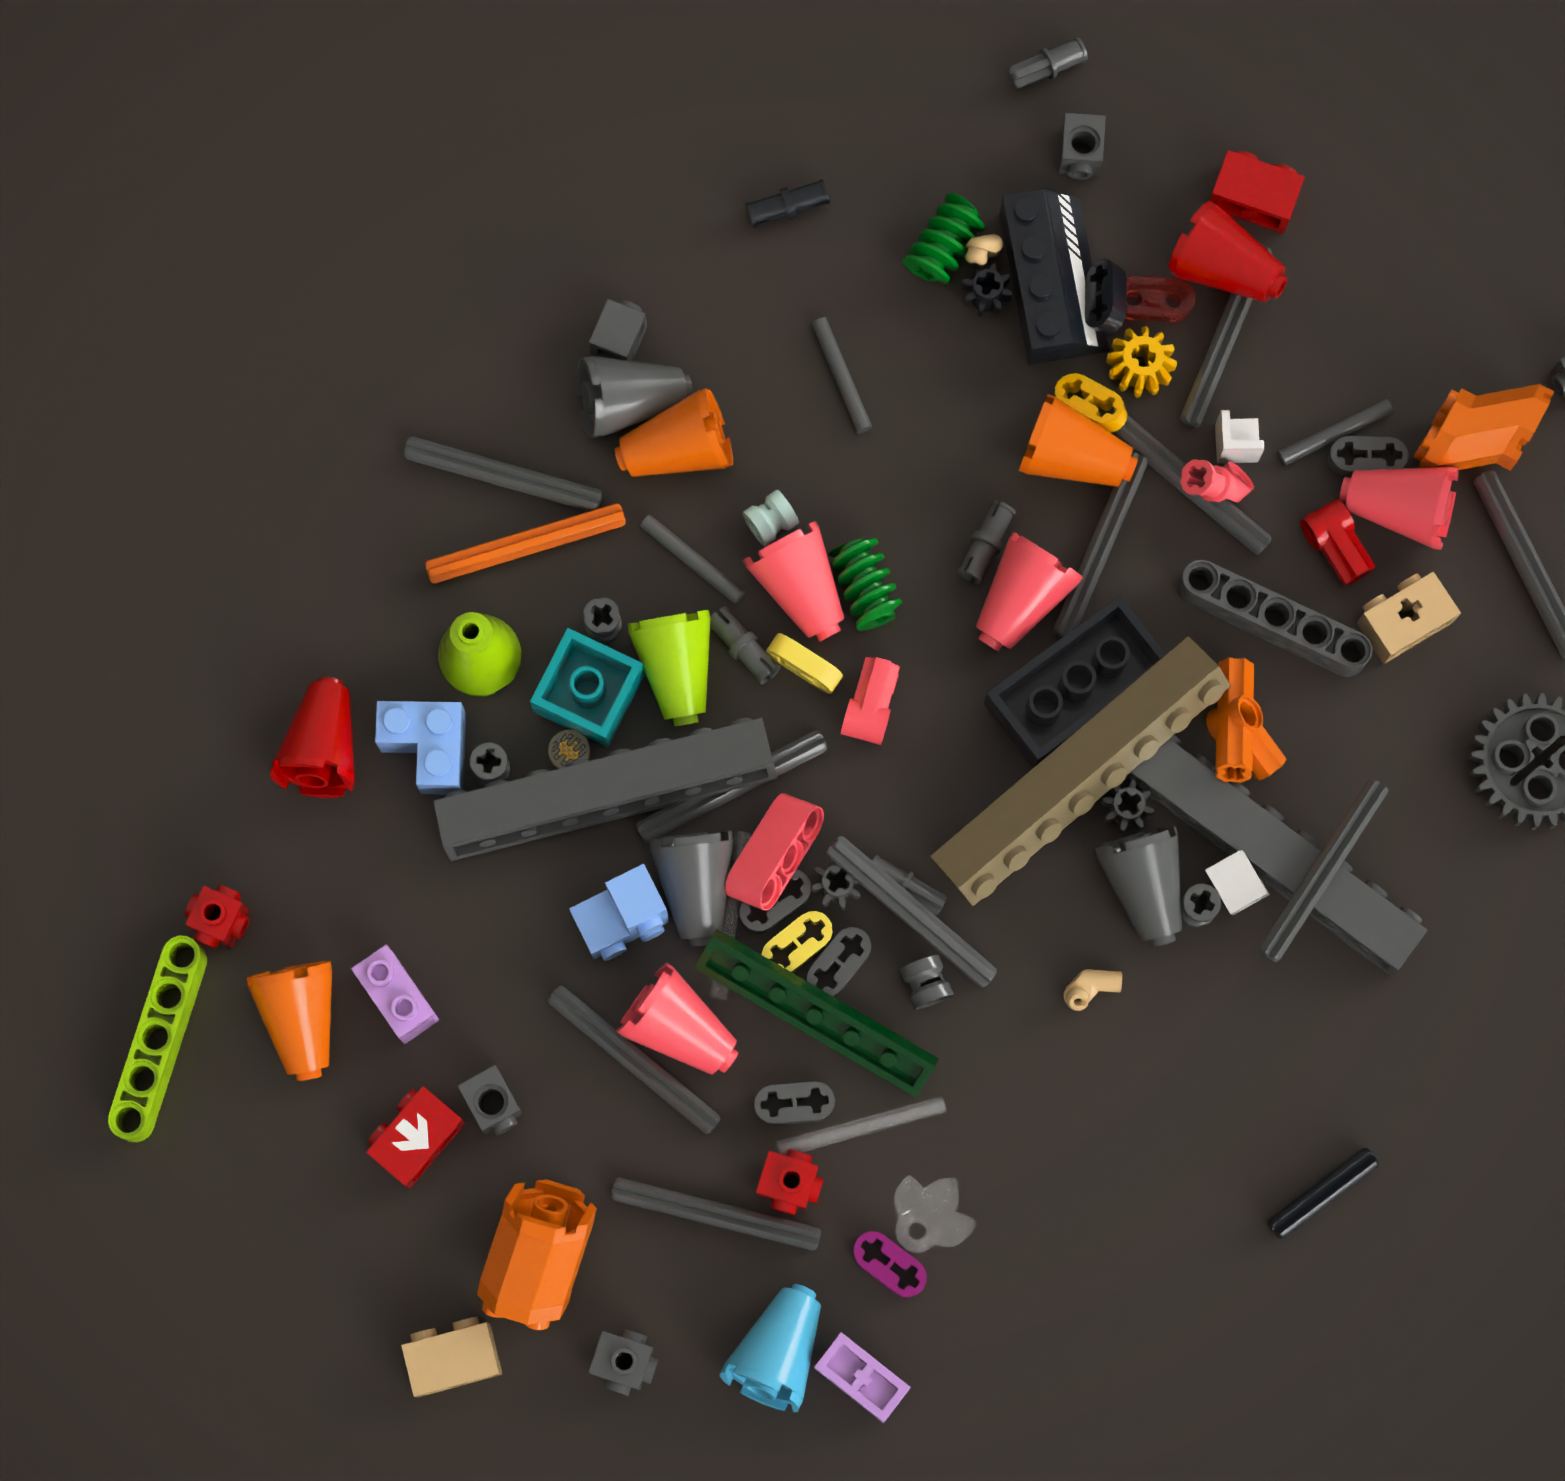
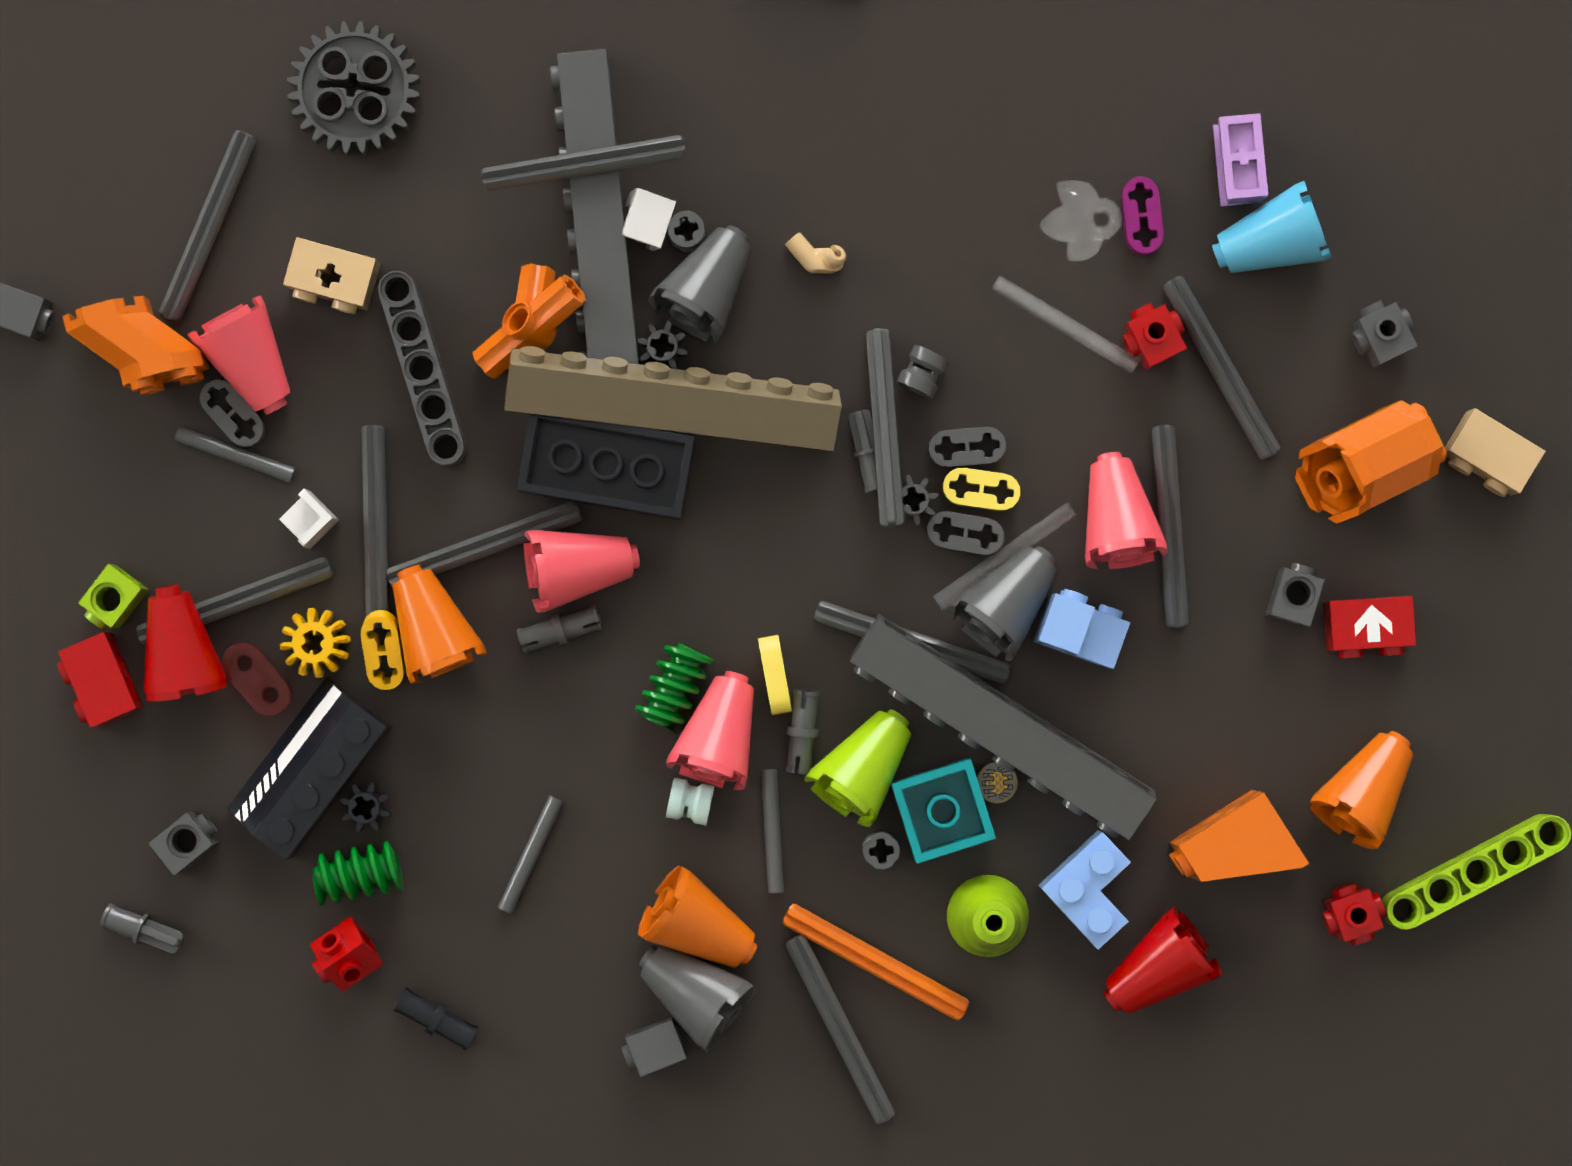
camera: 135 degrees left, 10 degrees up
(352, 876) = (1237, 842): none -> orange slope
(395, 994) = (1286, 734): lavender hinge -> none
(481, 755) = (1074, 829): dark grey bush -> none
(774, 851) = (934, 564): coral beam -> none
(794, 1092) = (1099, 377): dark grey beam -> none
(816, 1013) = (1020, 427): dark green plate -> none
(868, 711) = (765, 596): coral piece -> none
(894, 180) = (345, 955): none -> red brick
(982, 247) = (339, 840): tan arm -> none
(1105, 297) = (291, 713): black beam -> none
(1215, 482) = (360, 500): coral connector -> none
(1305, 268) = (130, 593): none -> lime brick
(1333, 533) = (318, 386): red piece -> none

